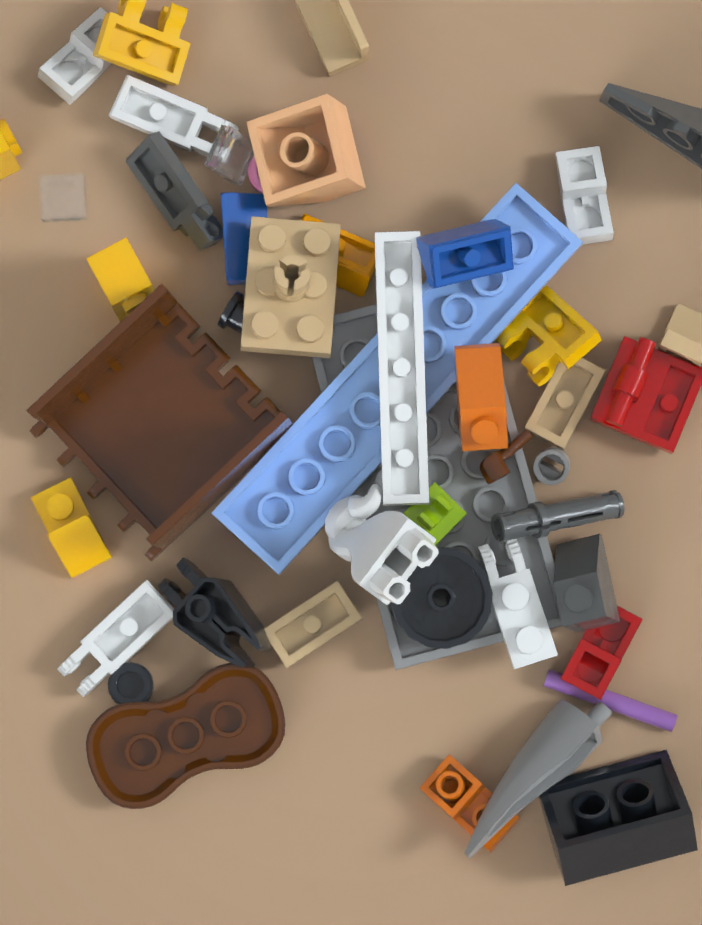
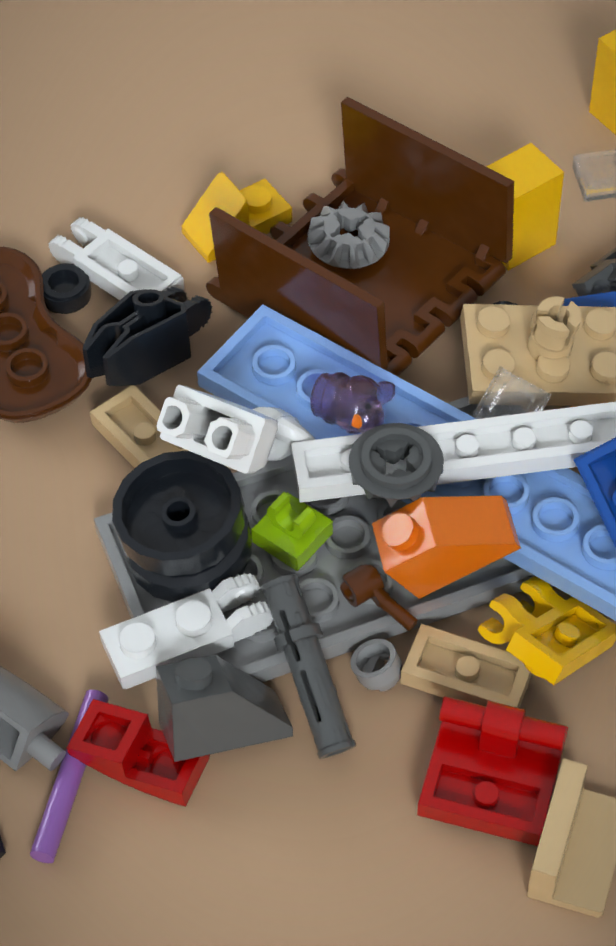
camera: 85 degrees right, 30 degrees down
(117, 451) = (346, 250): none -> light grey gear
(347, 325) = (510, 395): none -> clear tile
(349, 449) = (350, 402): none -> clear purple animal
(424, 402) = (390, 444): none -> dark grey gear

